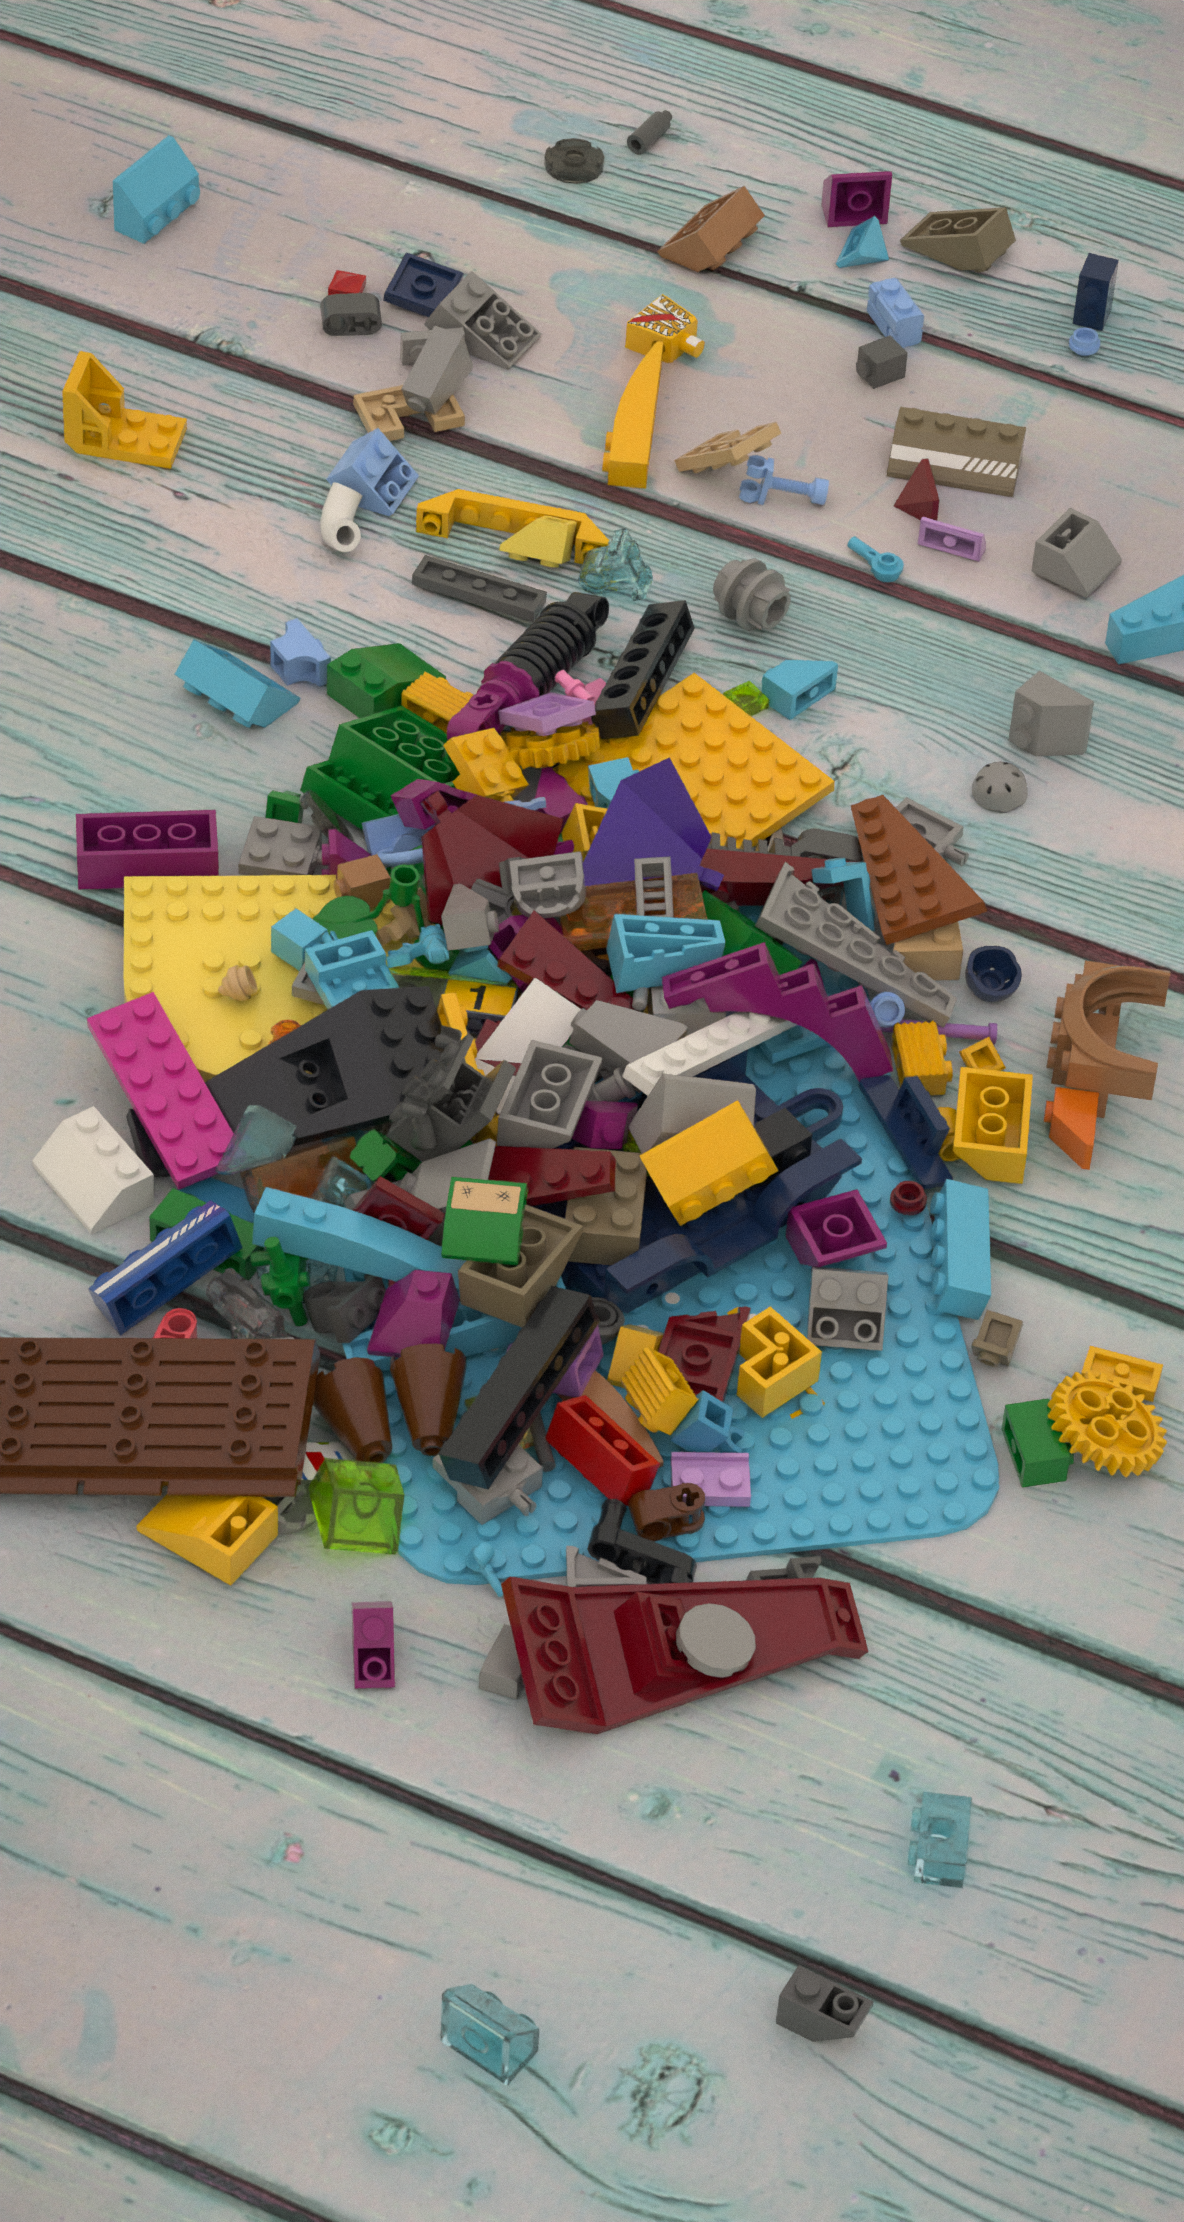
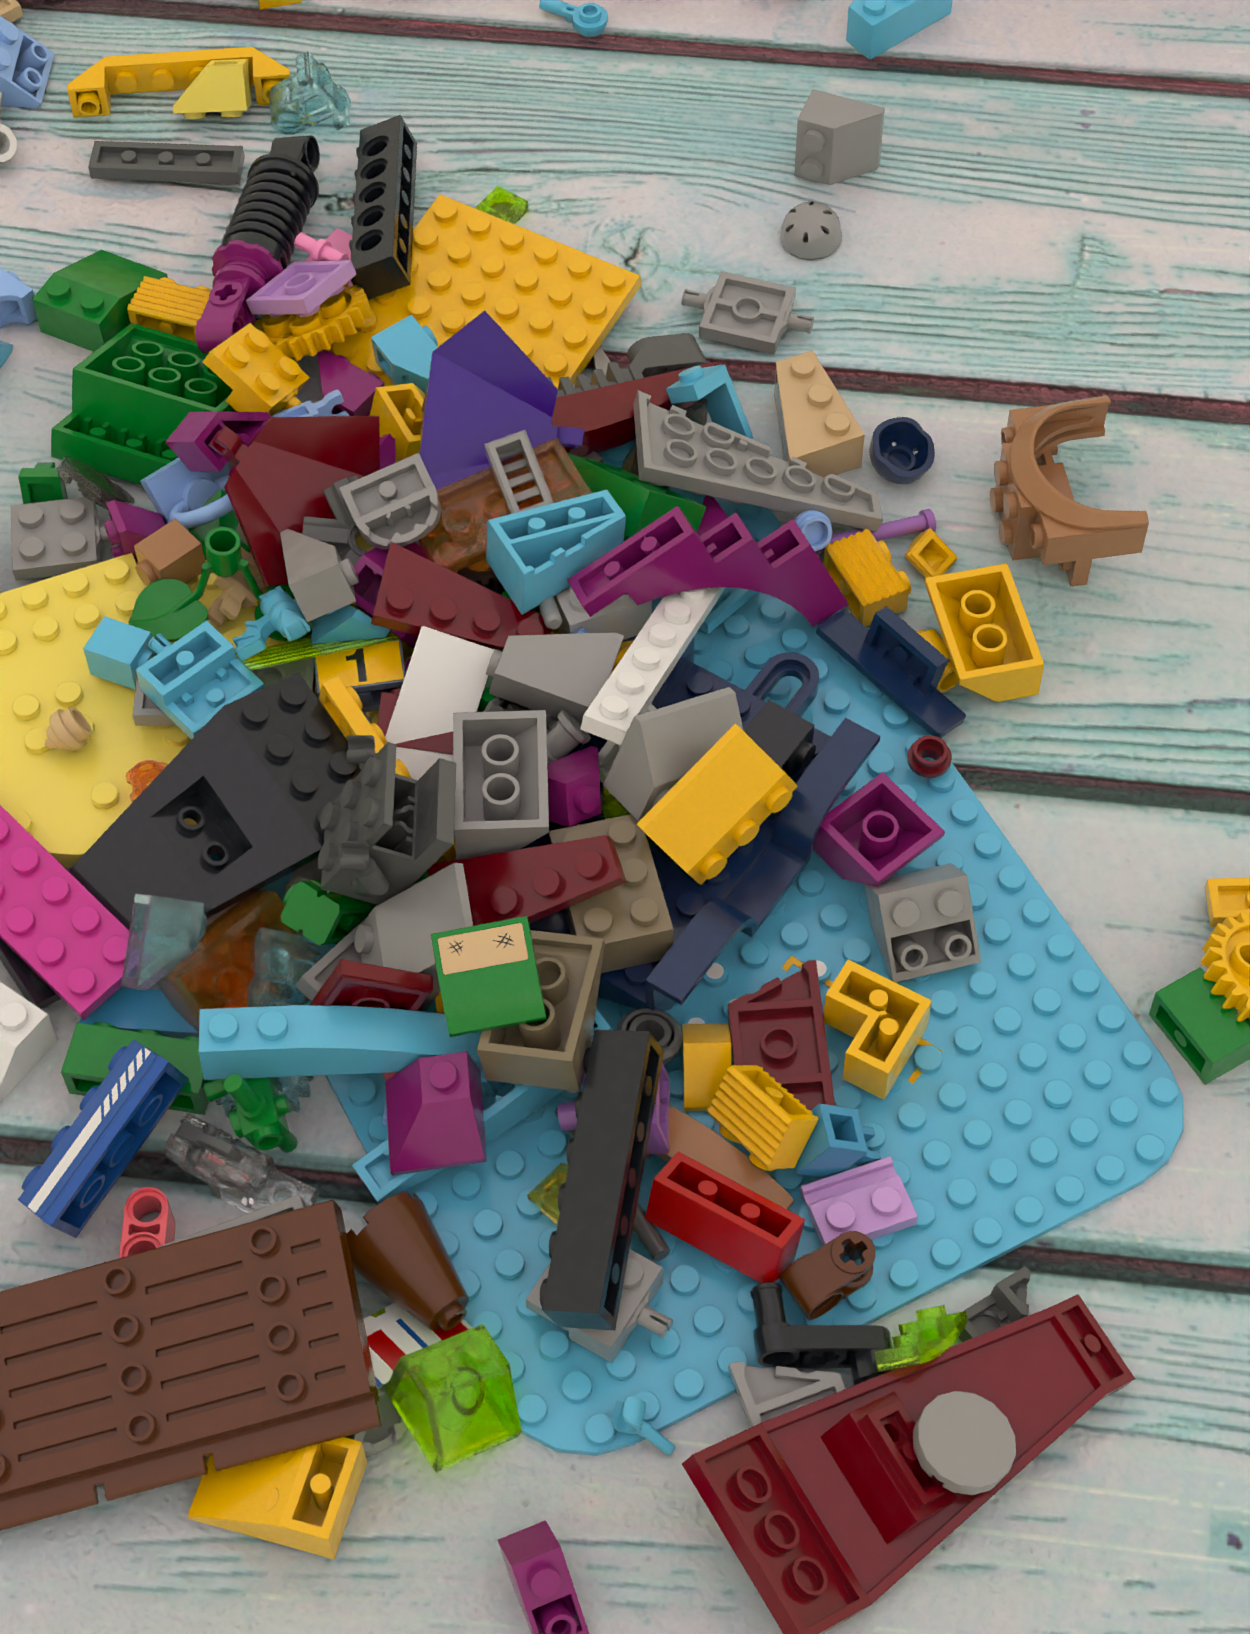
camera: 15 degrees left, 10 degrees up
(344, 1306) = (341, 1119): dark grey pin -> none
(429, 1393) = (490, 1214): reddish brown cone -> none
(501, 1667) = (713, 1561): light grey slope -> none
(723, 1569) = (922, 1339): none -> clear neon green slope
(751, 594) = (465, 88): light grey piece -> none
(798, 685) = (552, 176): medium azure slope -> none
(908, 877) = (776, 371): dark orange wing -> none
(961, 1249) = (1016, 803): medium azure brick -> none
(996, 1339) = (1100, 903): dark tan bracket -> none
(1073, 1123) = (1066, 604): orange slope -> none

